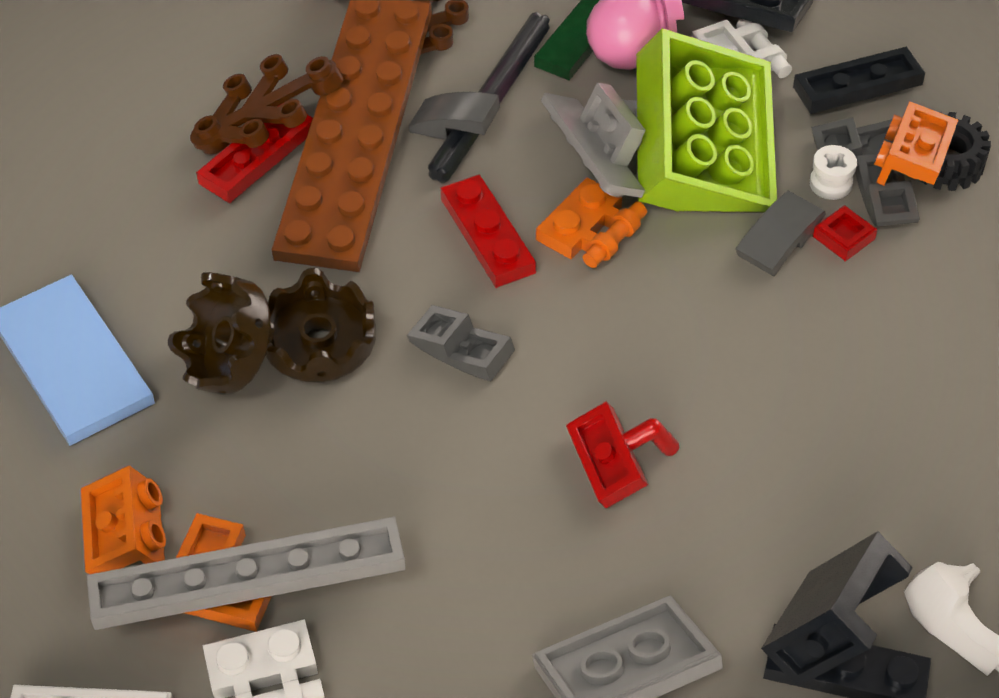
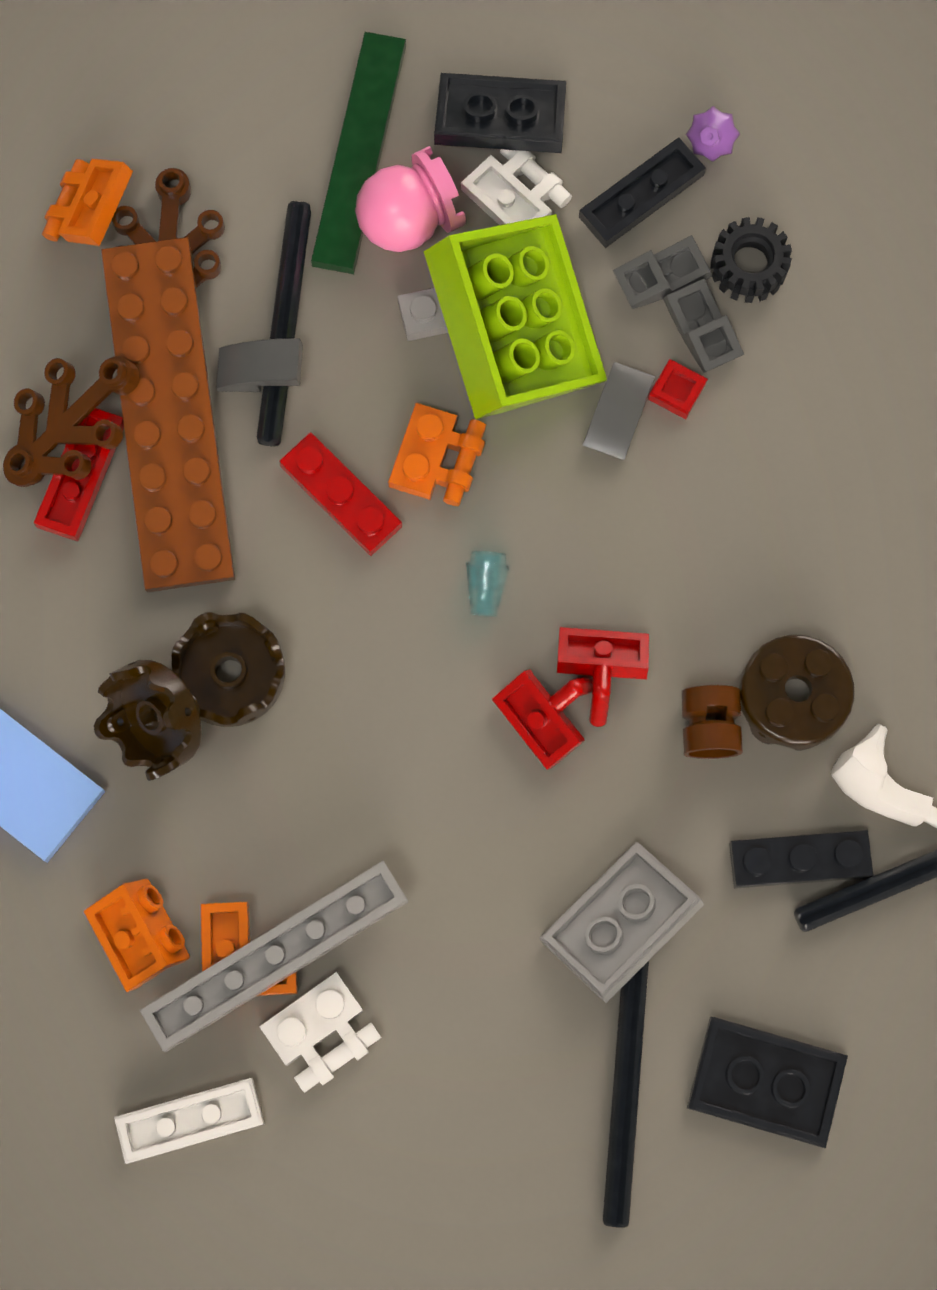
camera: 20 degrees left, 25 degrees up
(454, 340) = (363, 635): dark grey slope -> none
(599, 327) = (486, 582): none -> clear light blue cone
(603, 136) = (416, 355): light grey bracket -> none
(688, 418) = (602, 656): none -> red plate
(787, 504) = (712, 737): none -> reddish brown wheel
(821, 619) = (778, 828): black panel -> none
(833, 172) = (647, 332): white wheel -> none
(857, 513) = (790, 723): none -> dark brown plate
(917, 144) = (724, 280): orange bracket -> none
(940, 54) = (712, 134): none -> medium lavender piece

